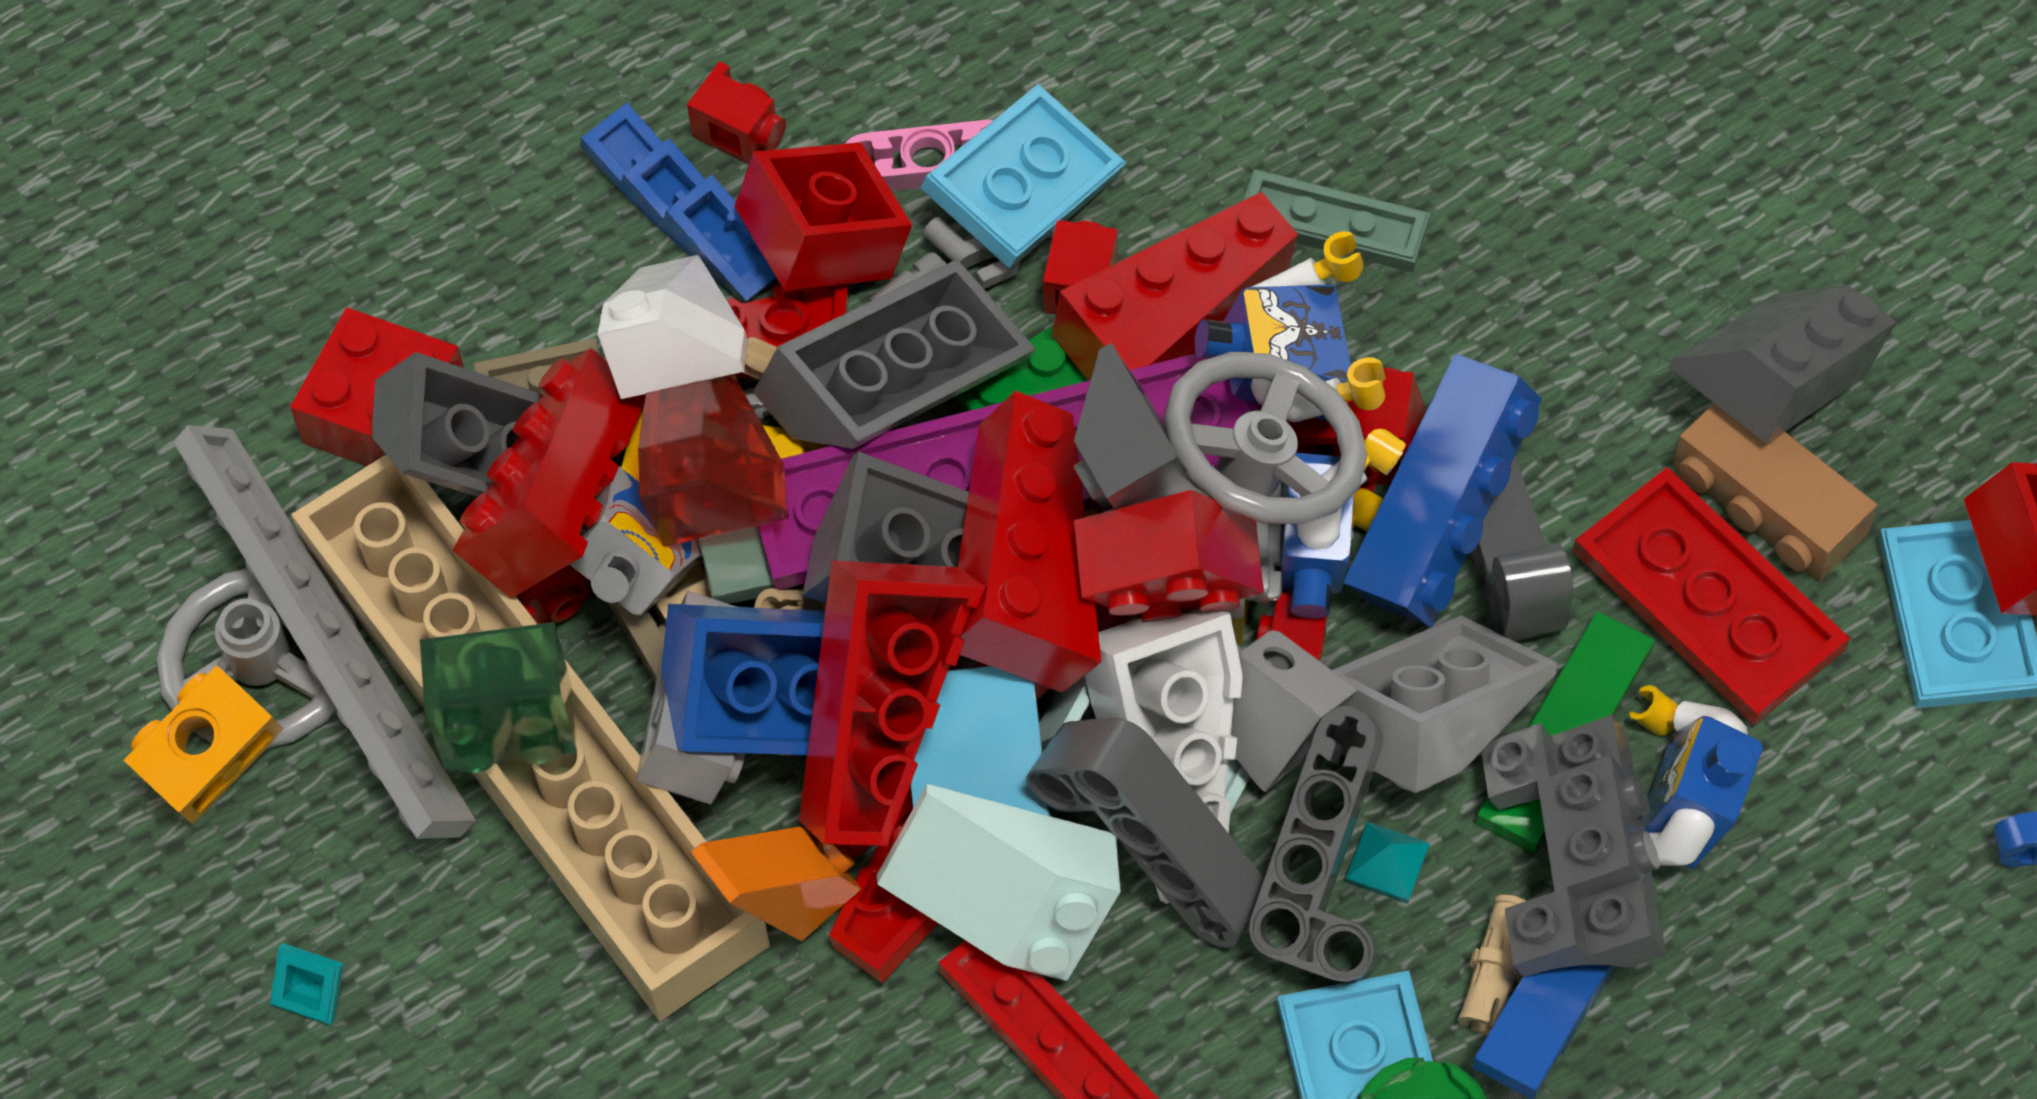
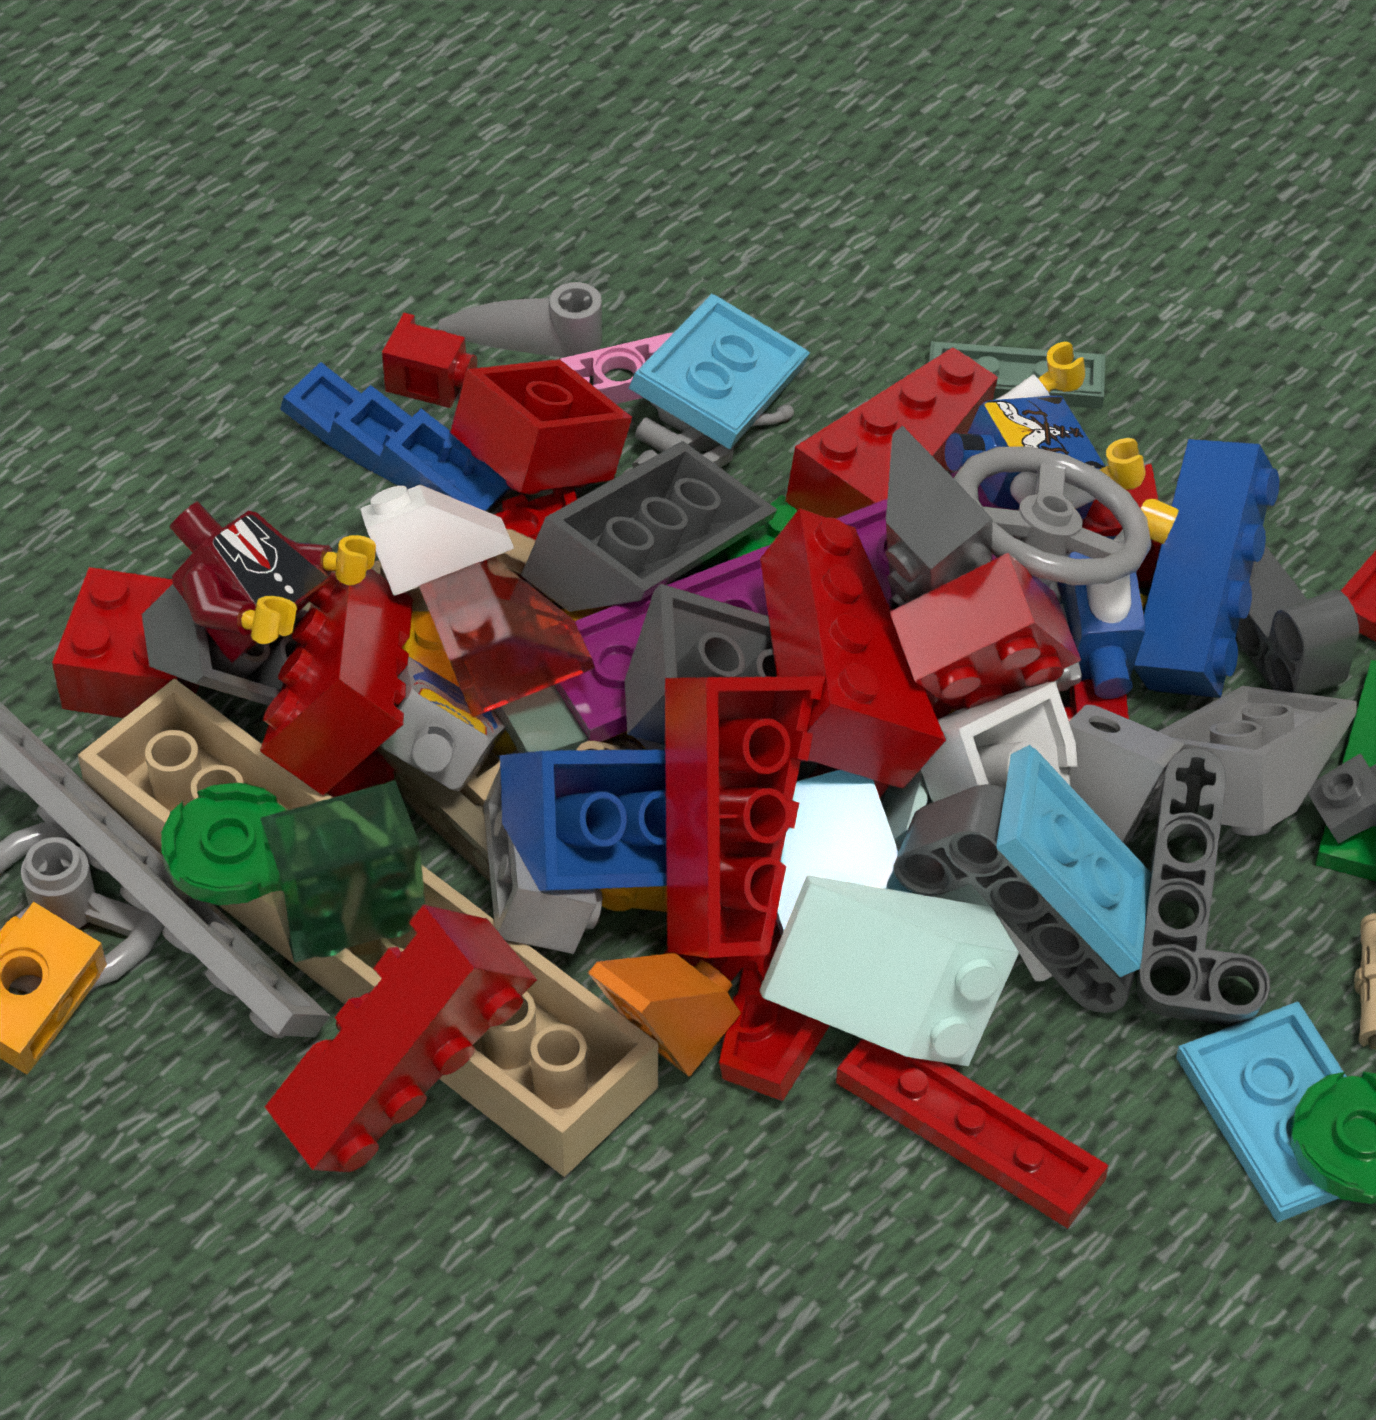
camera: 15 degrees left, 10 degrees down
(306, 984) = (188, 1201): teal slope -> none
(386, 630) = (218, 845): none -> green tile
(481, 369) = (252, 580): none -> torso
(527, 867) = (400, 1038): none -> red wedge
(881, 93) = (551, 326): none -> light grey piece
(1076, 254) = (787, 425): red brick -> none
(1199, 805) = (1074, 860): none -> medium azure tile
(1387, 862) = (1243, 912): teal slope -> none

